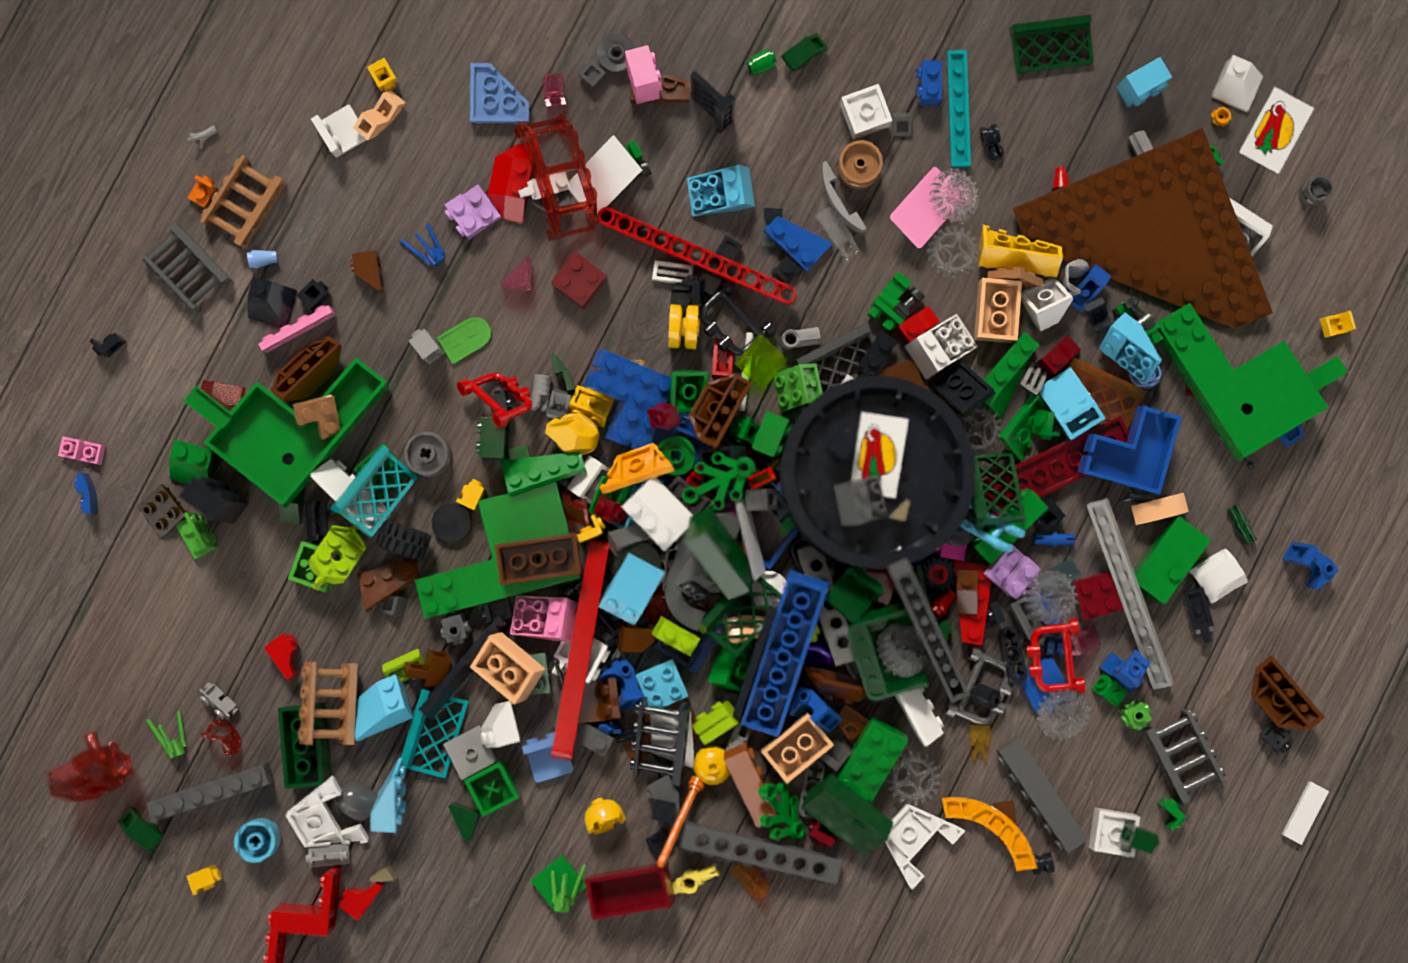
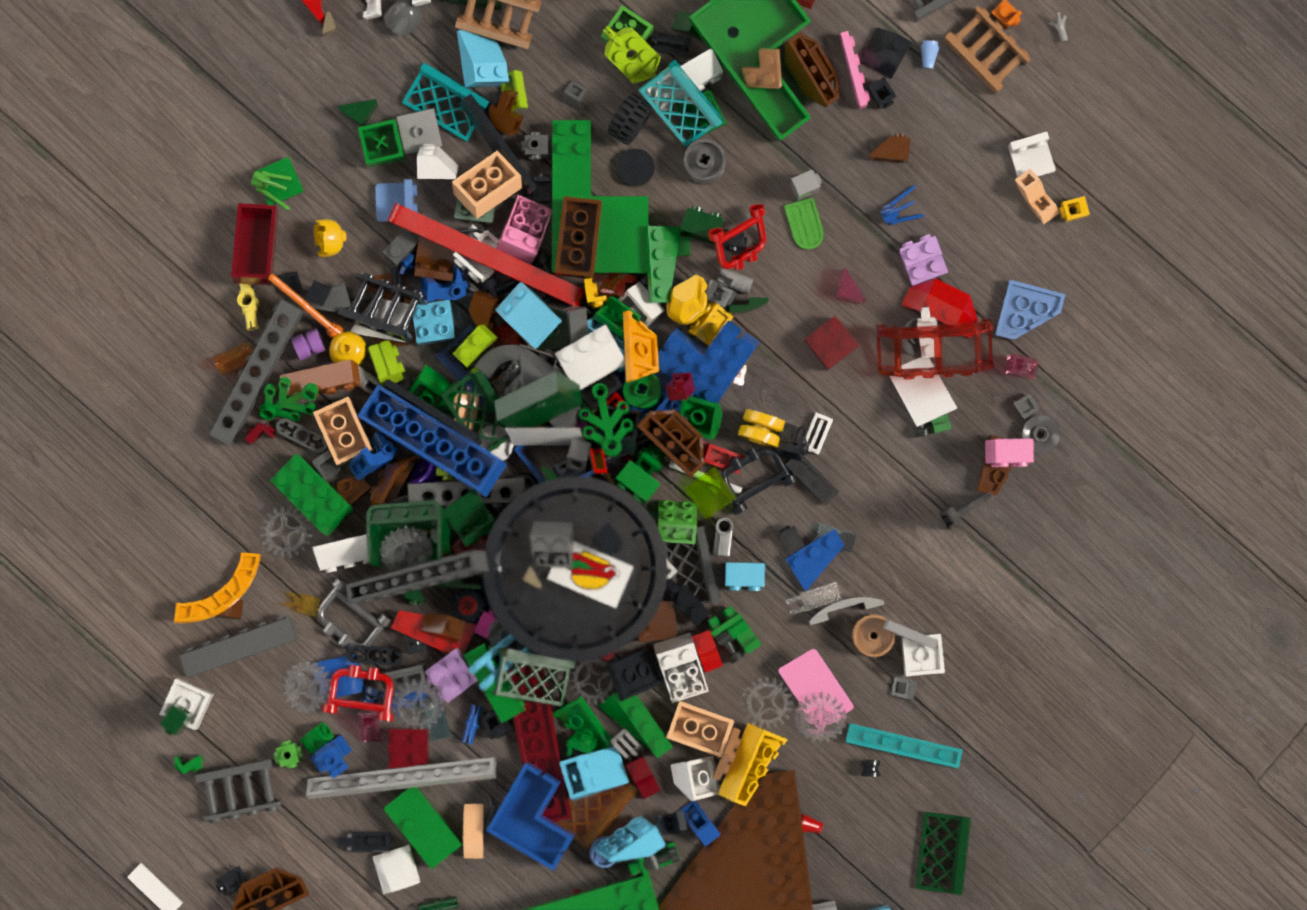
camera: 110 degrees right, 0 degrees up
(382, 582) = (597, 92): reddish brown wing -> none
(389, 801) = (391, 46): medium azure slope -> none
(472, 494) = (656, 192): yellow brick -> none
(610, 510) = (607, 315): dark red bracket -> none
(689, 249) = (829, 450): red beam -> none
(717, 807) = (308, 344): none -> medium lavender wheel
(721, 191) = (882, 498): medium azure slope -> none
(761, 62) = (996, 569): green brick -> none
(803, 52) = (996, 612): dark green slope -> none
(834, 305) = (745, 575): none -> medium azure brick
(847, 815) = (269, 460): dark green brick -> none
(851, 123) = (910, 634): none -> light grey beam
(909, 834) = (237, 516): white wing -> none
(930, 83) = (935, 724): blue brick -> none
(942, 603) = (439, 602): red cone -> none
(985, 696) = (343, 619): black brick -> none
(992, 152) = (852, 766): black hinge -> none
(1044, 863) = (175, 630): black wheel -> none
(1074, 270) = (721, 812): light grey piece -> none

